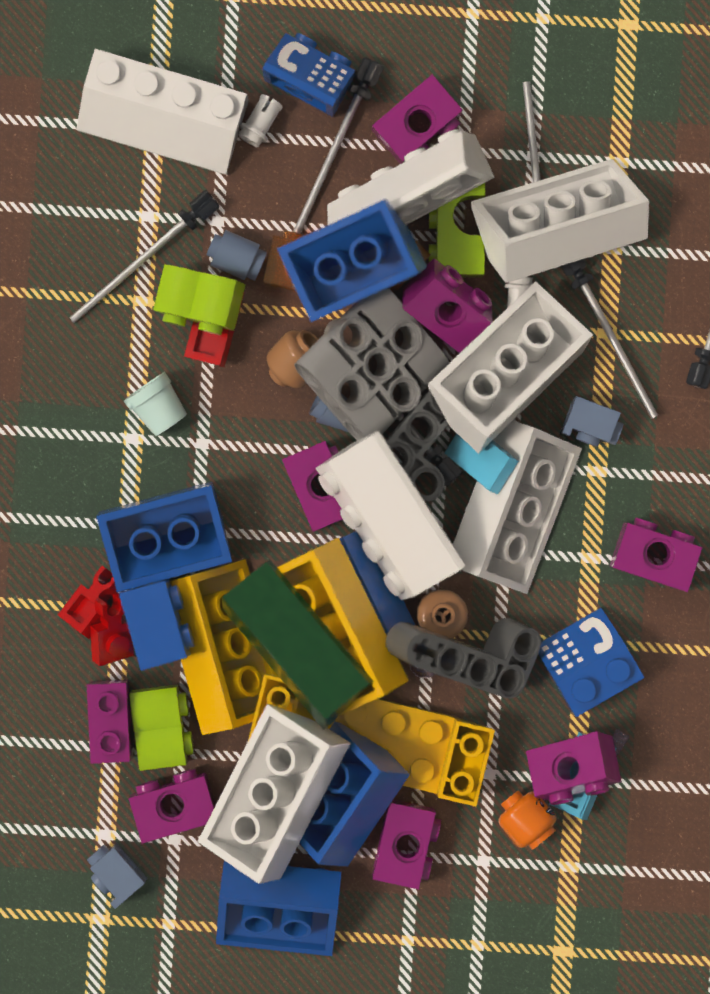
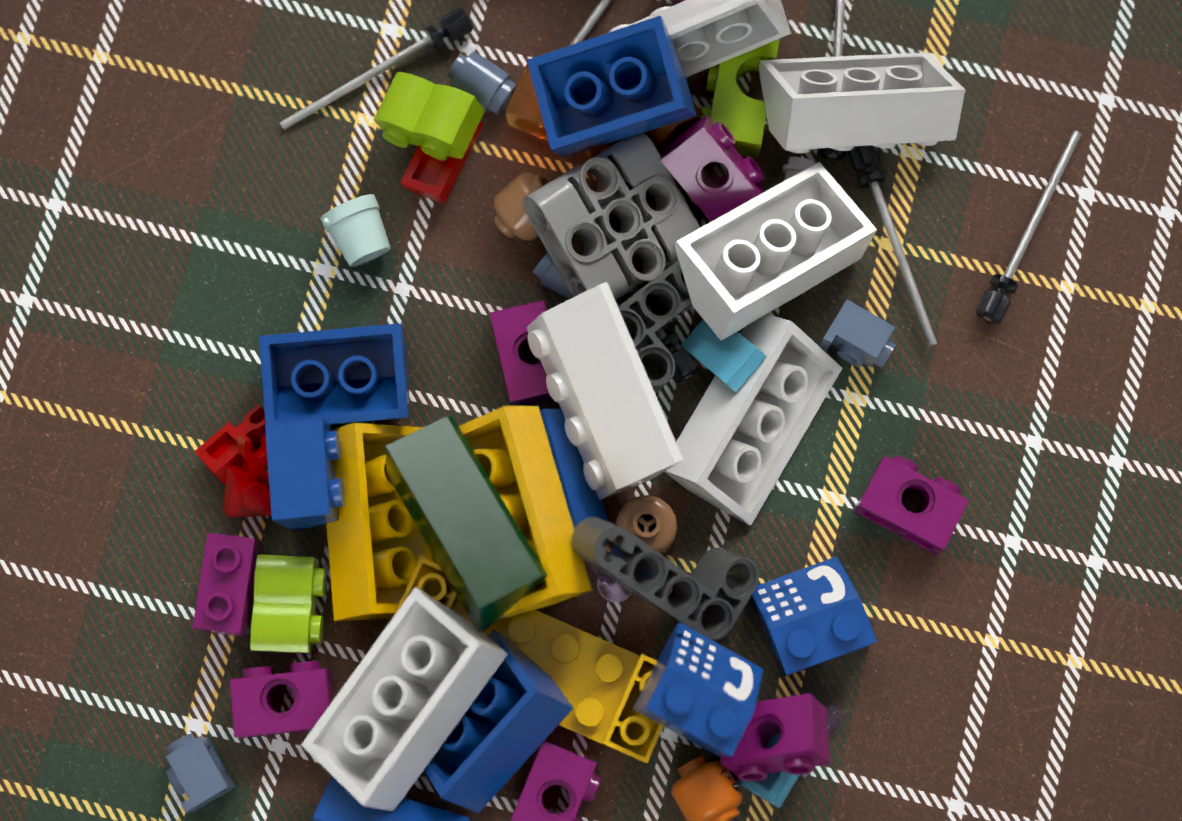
camera: 15 degrees right, 10 degrees down
(510, 744) = (701, 691): none -> blue slope

